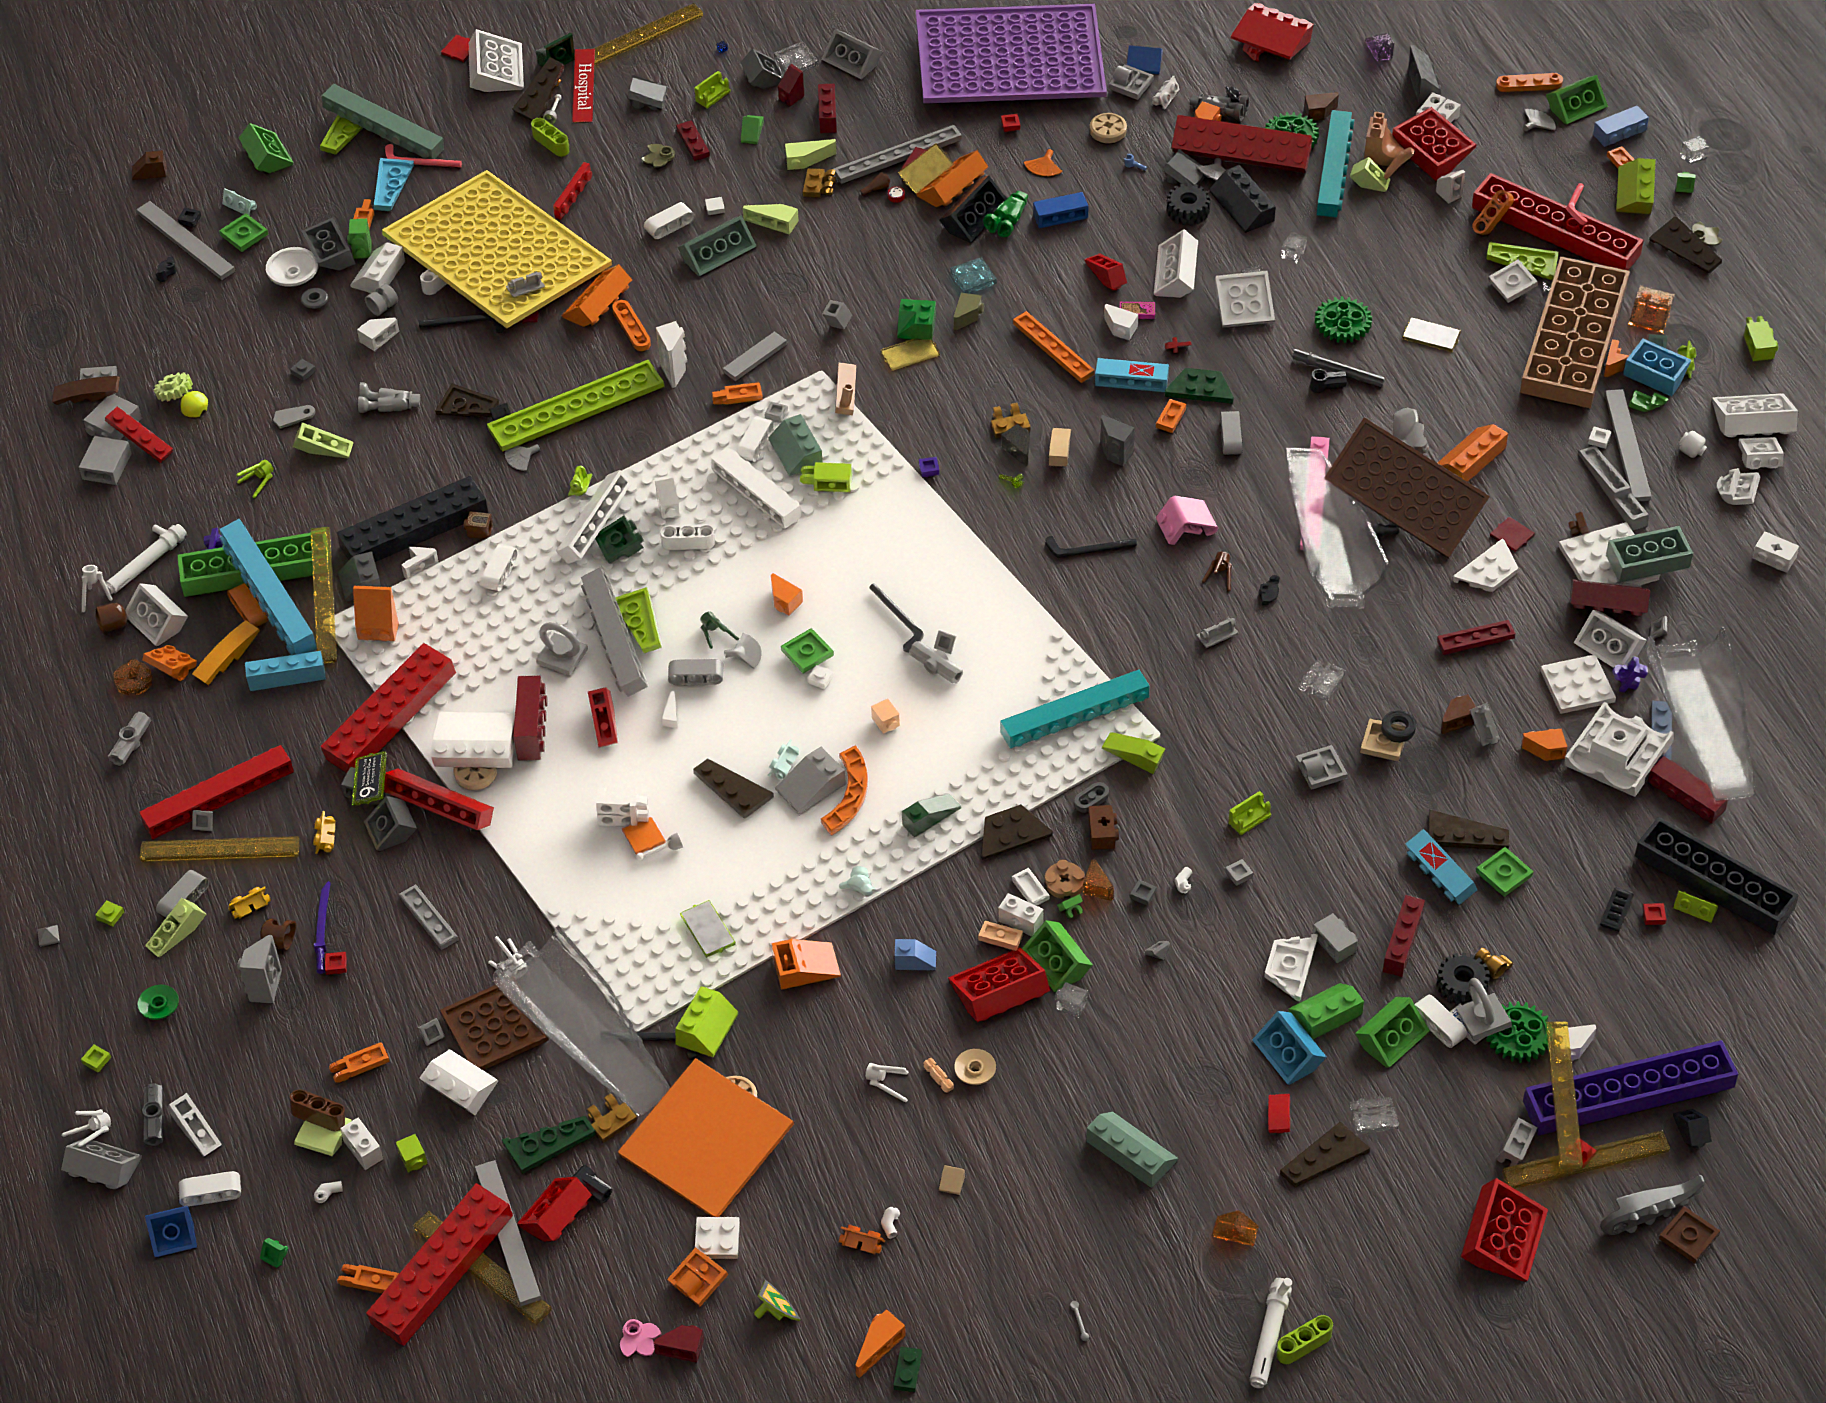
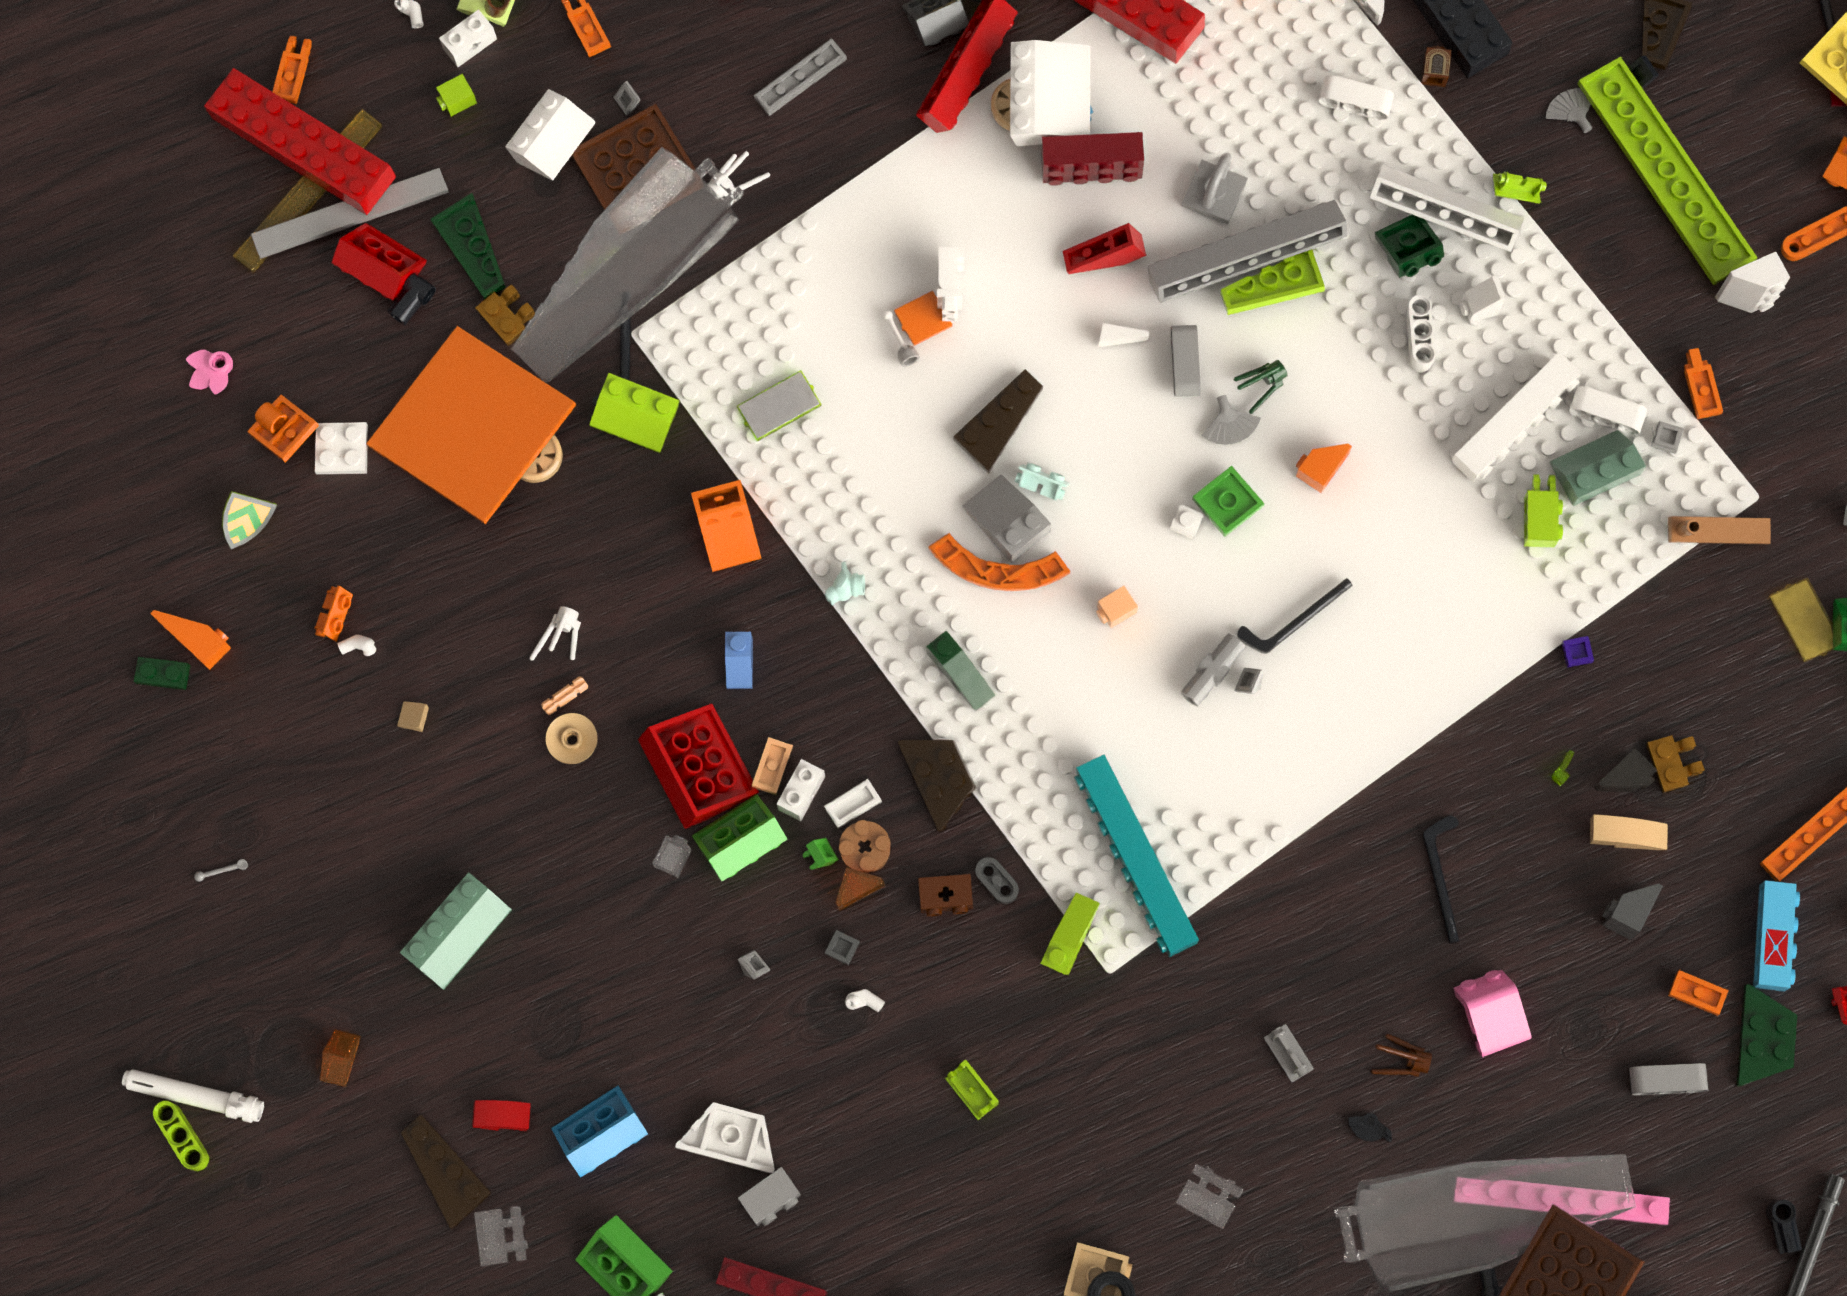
camera: 90 degrees right, 25 degrees up
(681, 1343) = (196, 418): dark red slope -> none
(754, 356) = (1781, 403): light grey tile -> none
(1239, 872) = (876, 1073): light grey plate -> none
(1321, 767) = (1054, 1189): light grey plate -> none
(1328, 1009) = (660, 1180): bright green slope -> none

